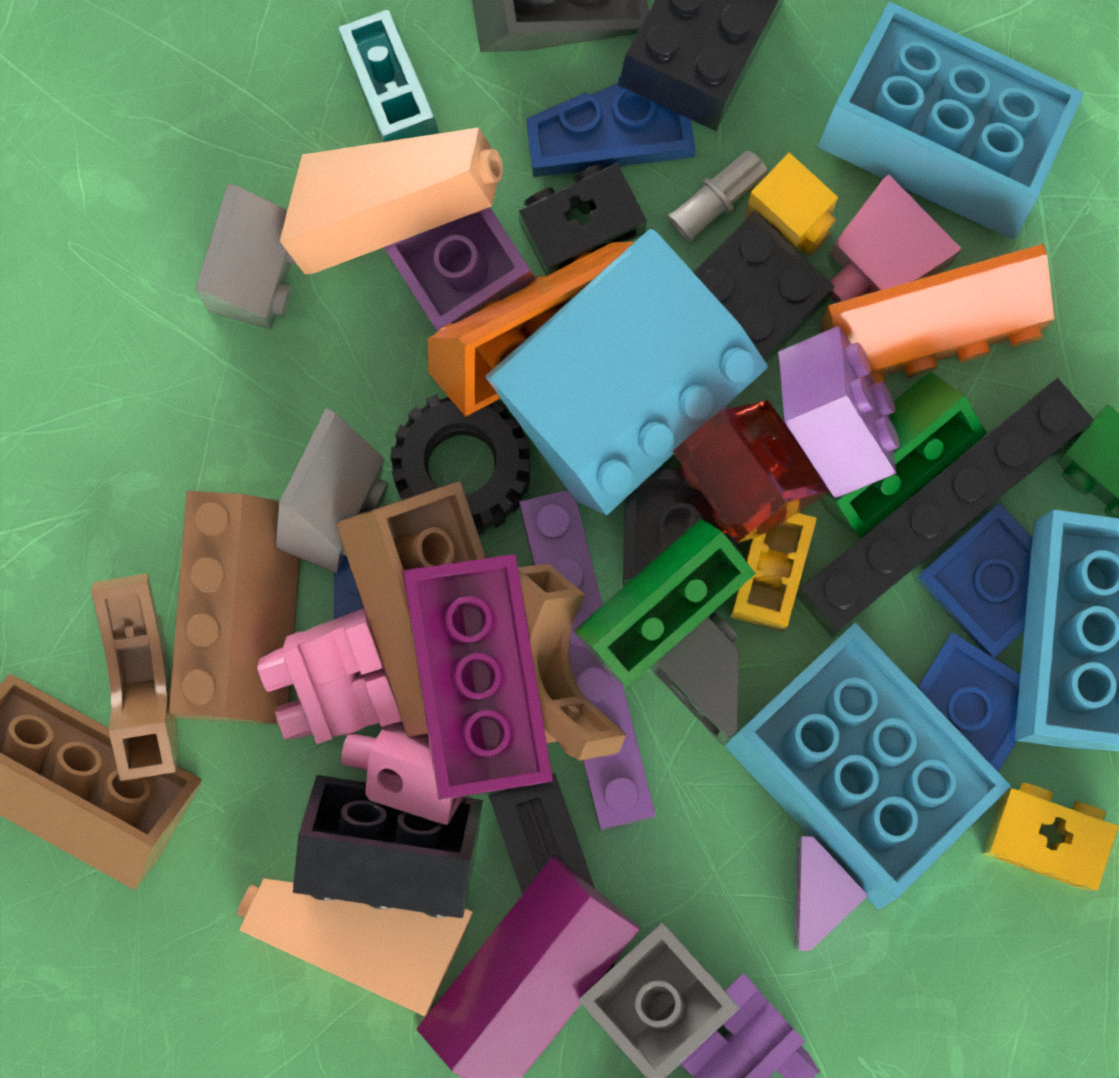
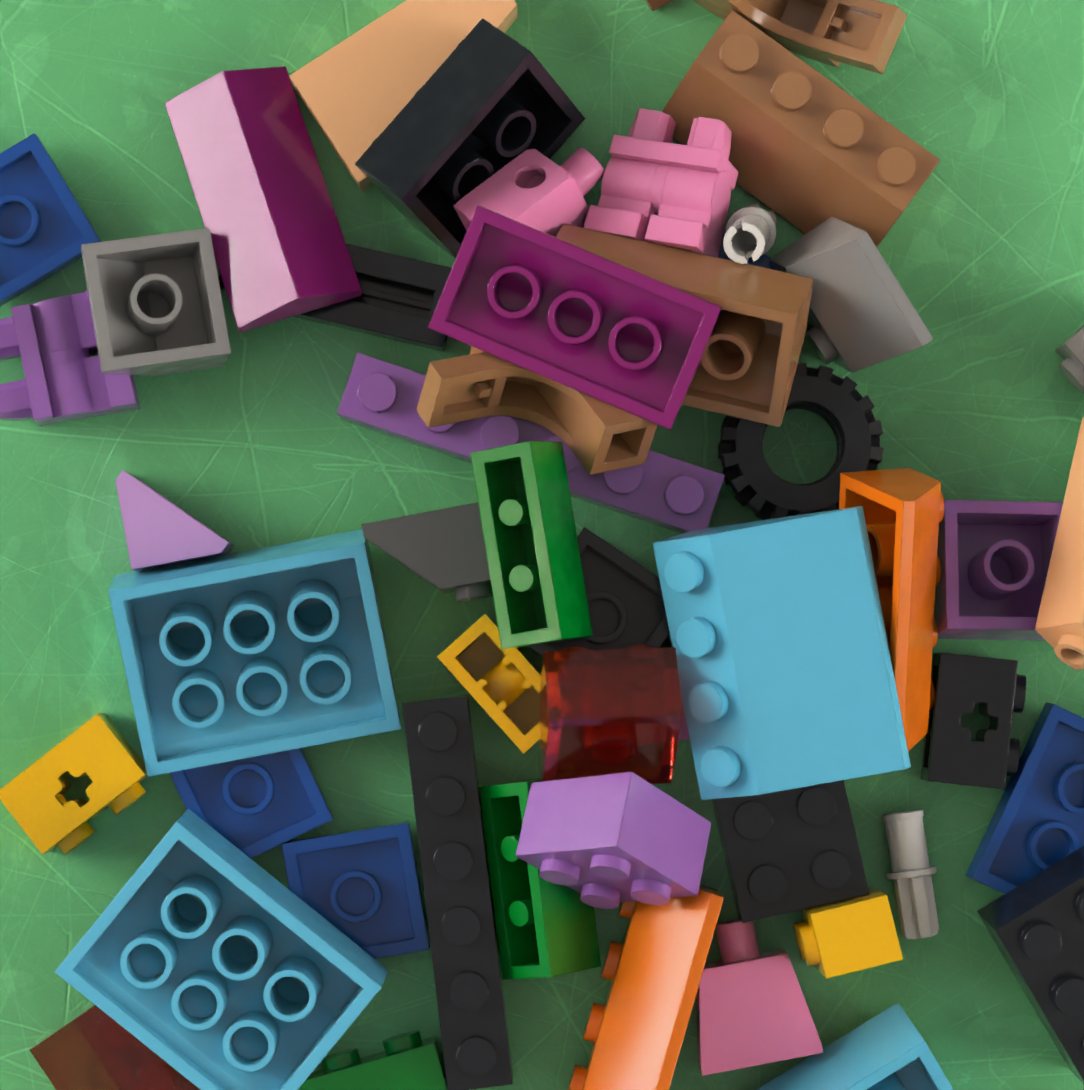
camera: 120 degrees right, 5 degrees up
(328, 595) = (749, 233): none -> white axle

